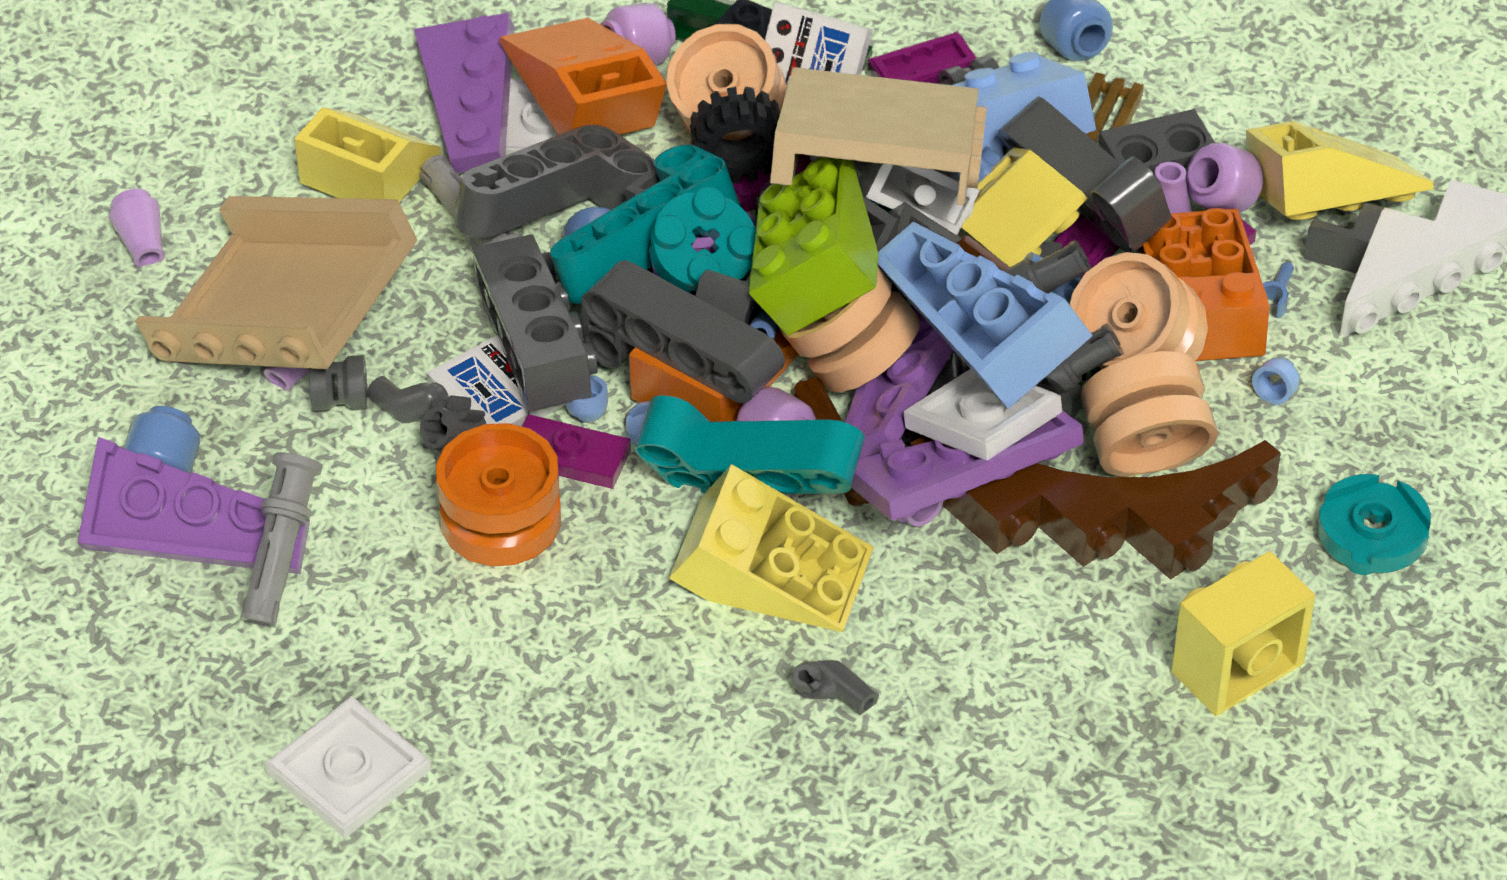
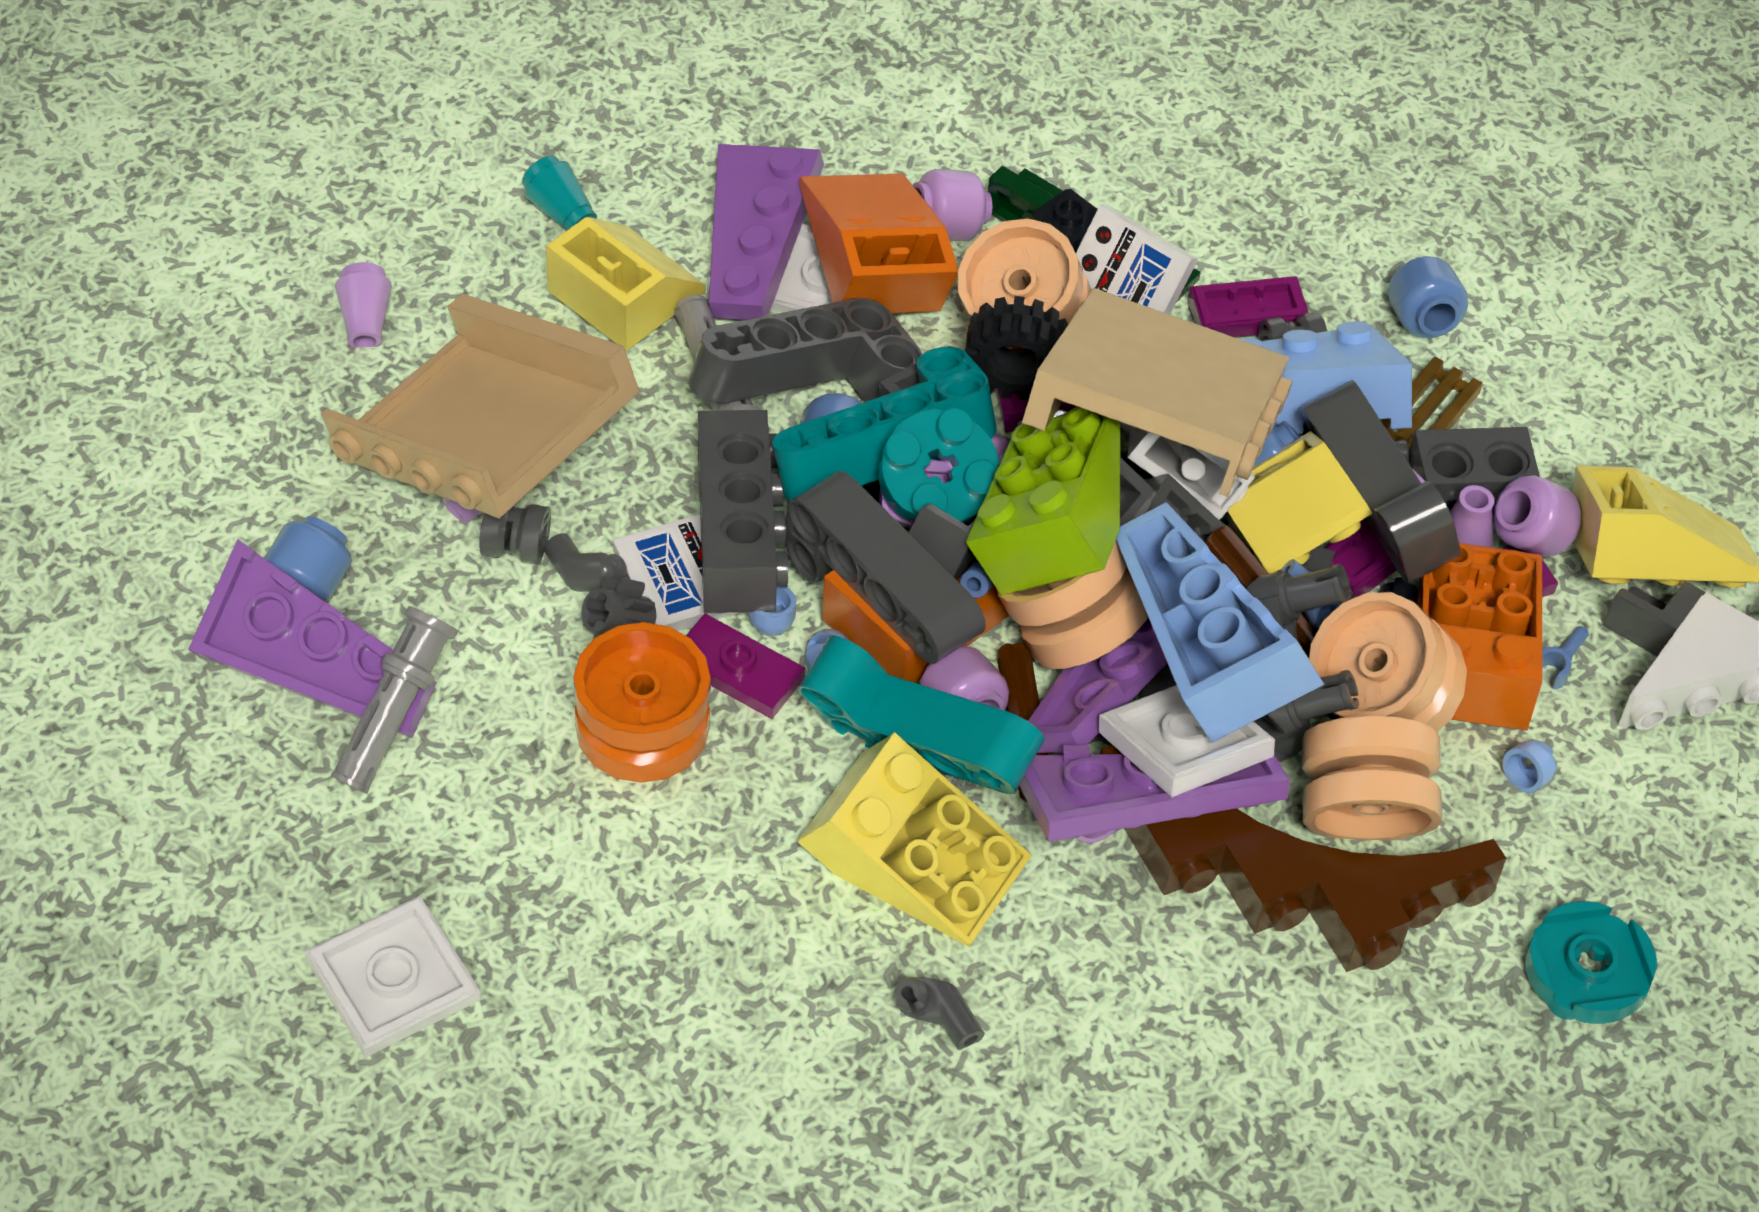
camera: 10 degrees right, 5 degrees up
(282, 98) = (556, 191): none -> teal cone
(1242, 632) = (1401, 1064): light yellow brick -> none

